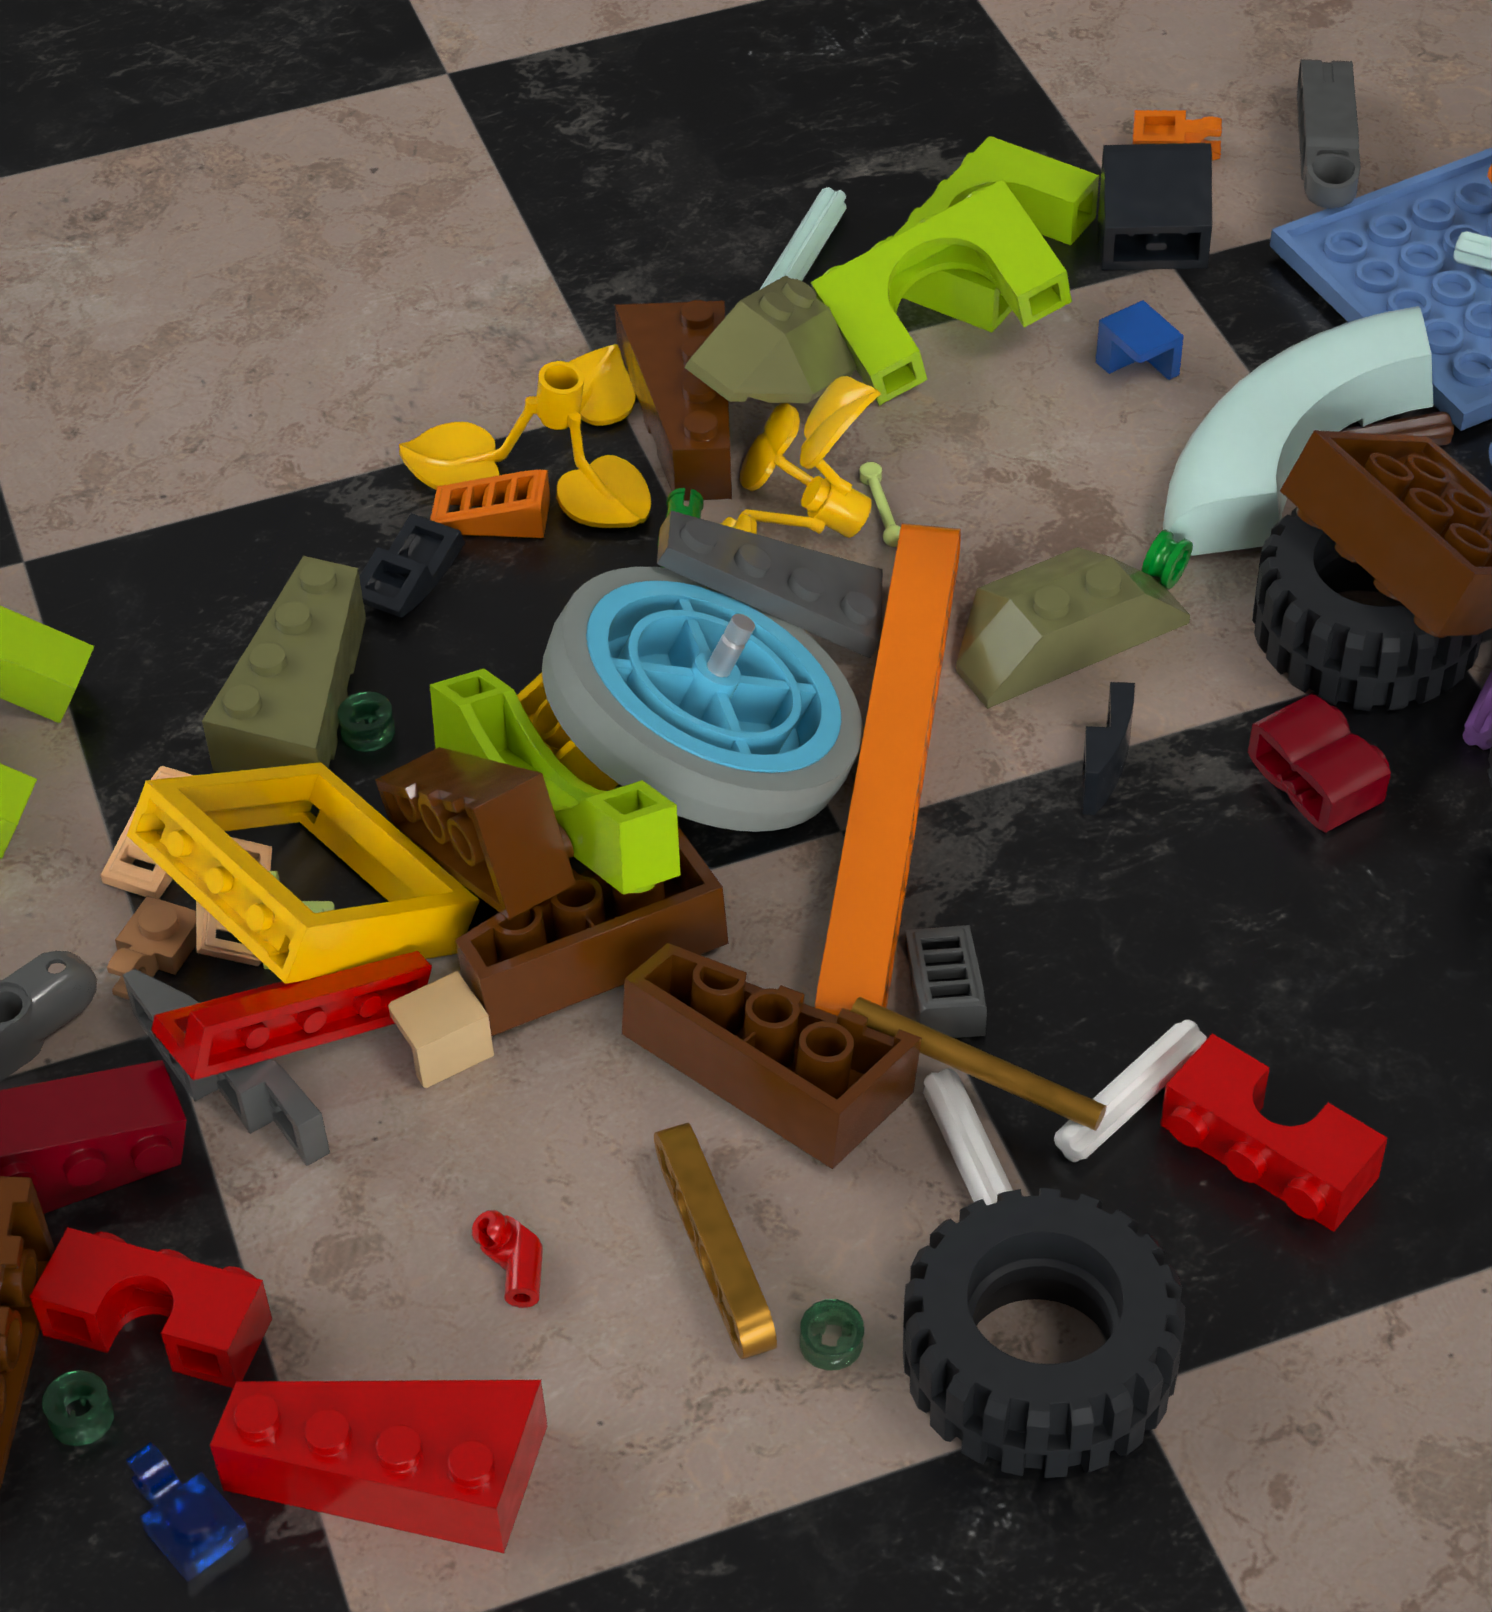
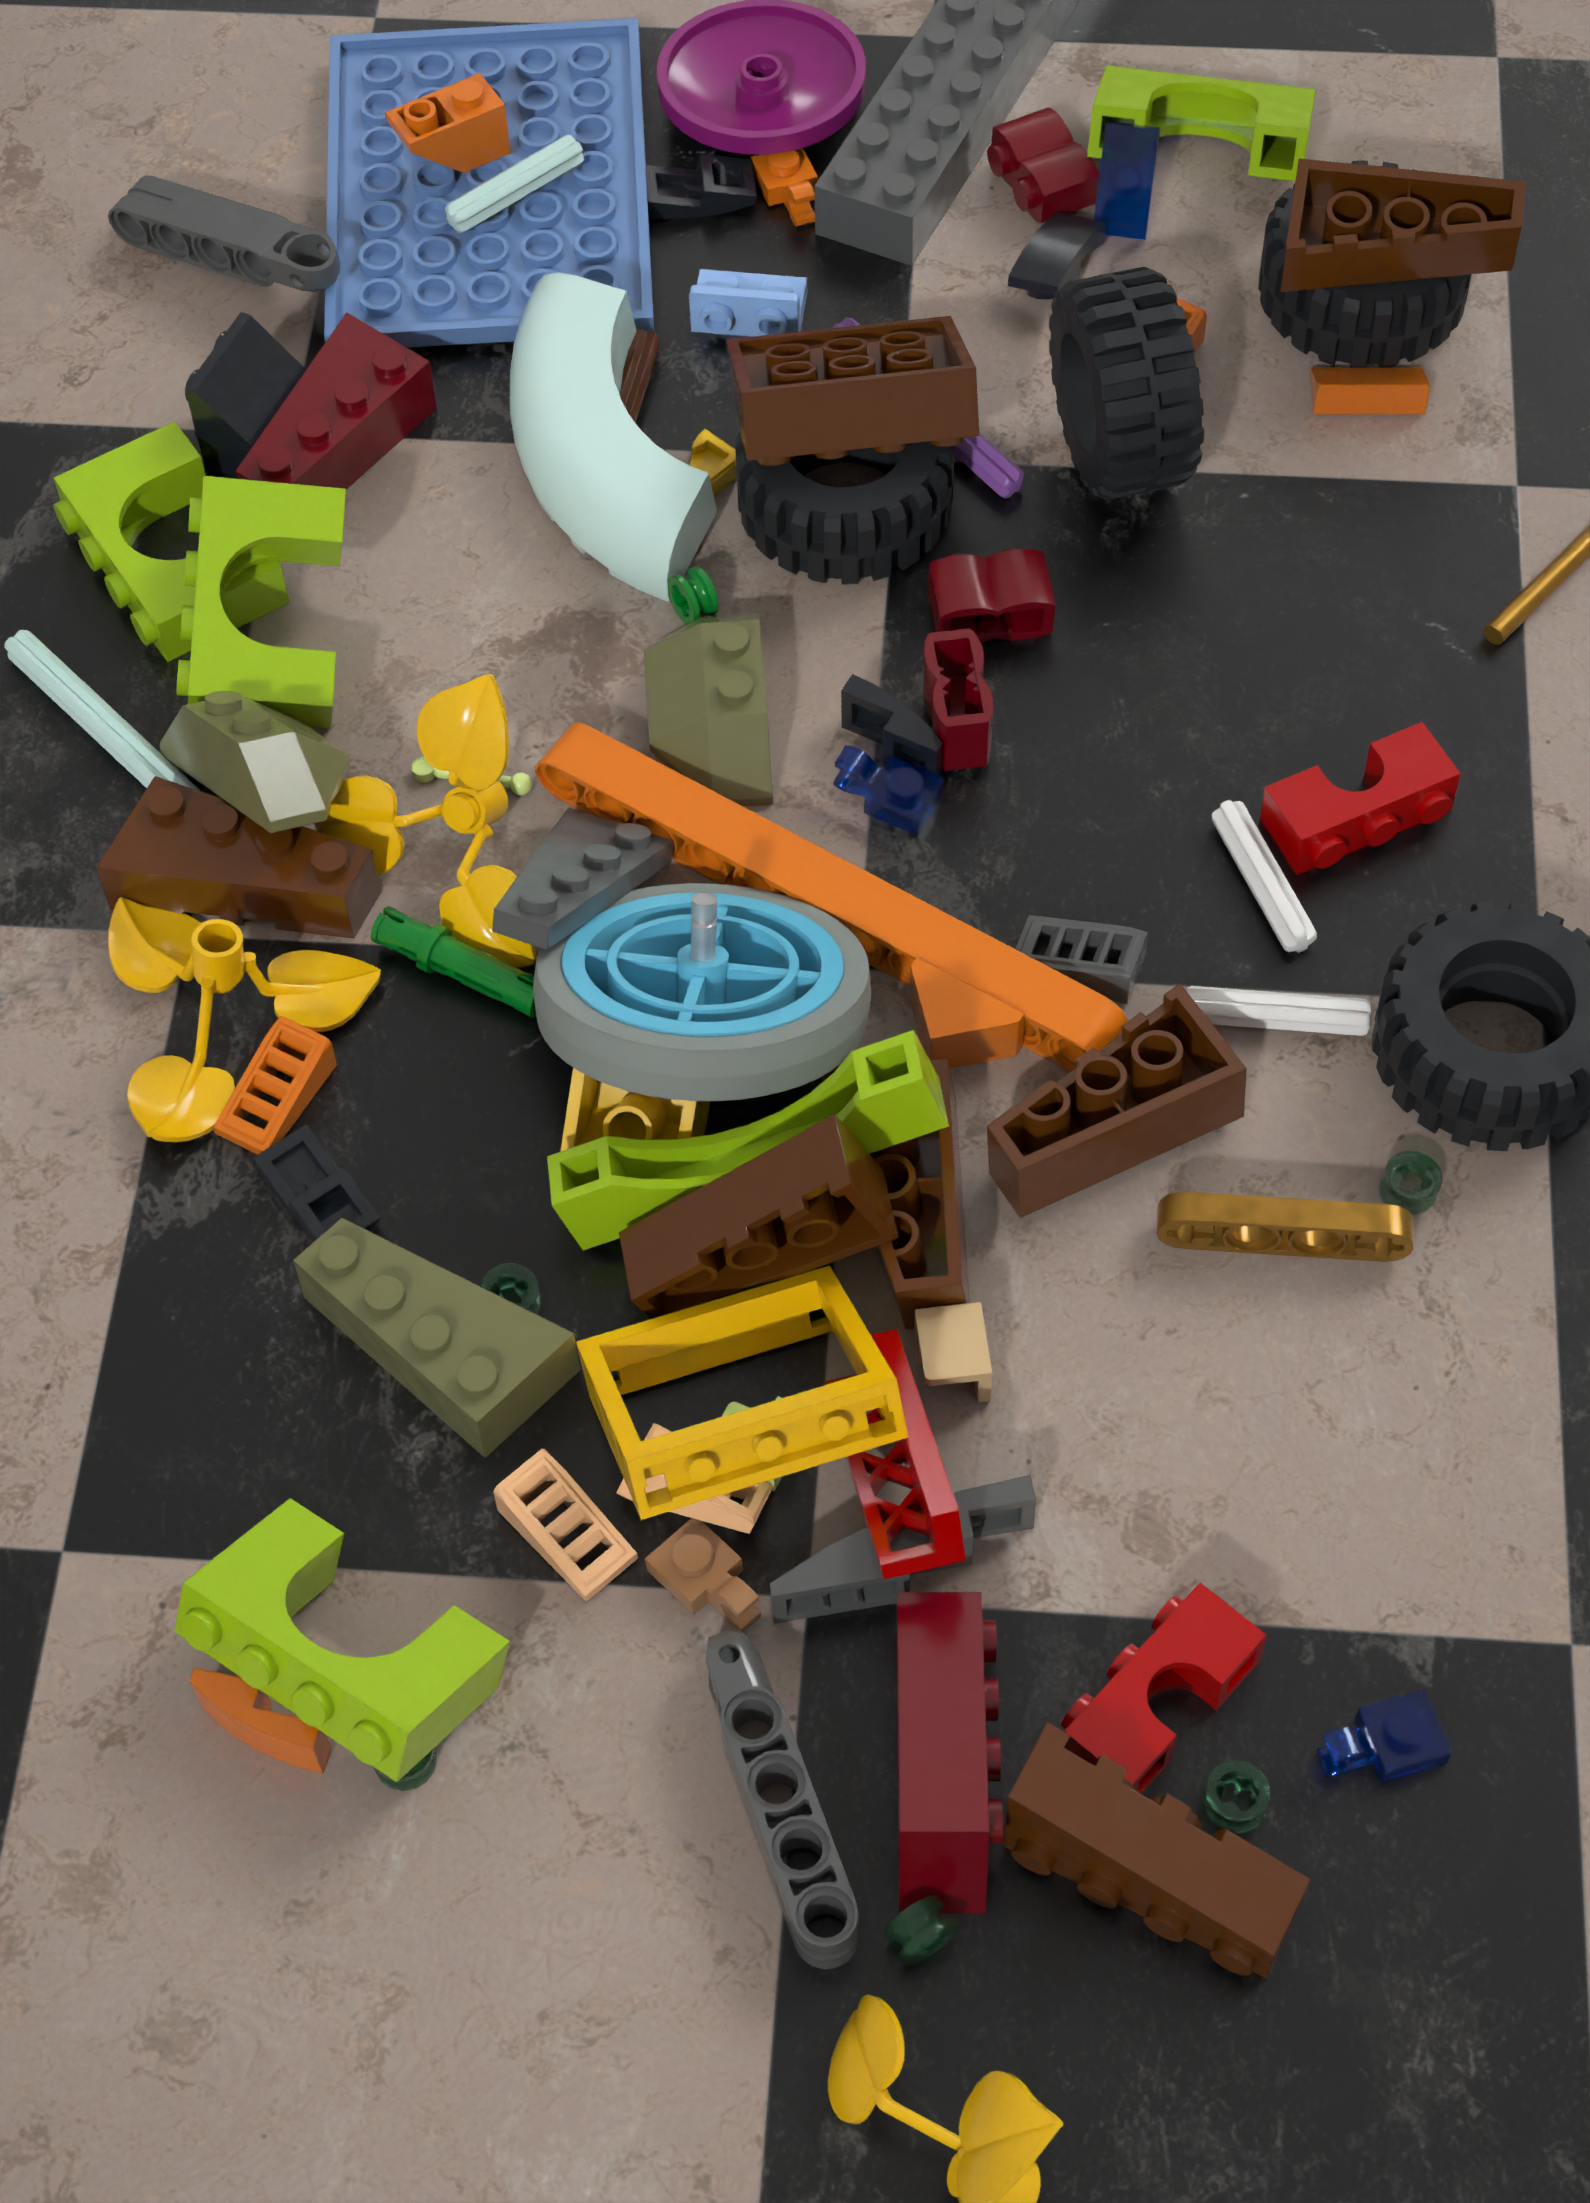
camera: 65 degrees left, 10 degrees up
(388, 1453) = (1418, 1535): red wedge -> none
(515, 1251) = (1223, 1384): red arm -> none
(798, 902) = (961, 1020): none -> orange slope
(986, 1066) = (1212, 958): pearl gold bar -> none
(1048, 782) = (893, 794): none -> clear blue plate
(1139, 336) = (407, 486): blue panel -> none
(1165, 771) = (958, 698): none -> dark red brick
(1173, 128) = (127, 355): orange plate -> none
(1186, 270) = (344, 411): none -> dark red wedge

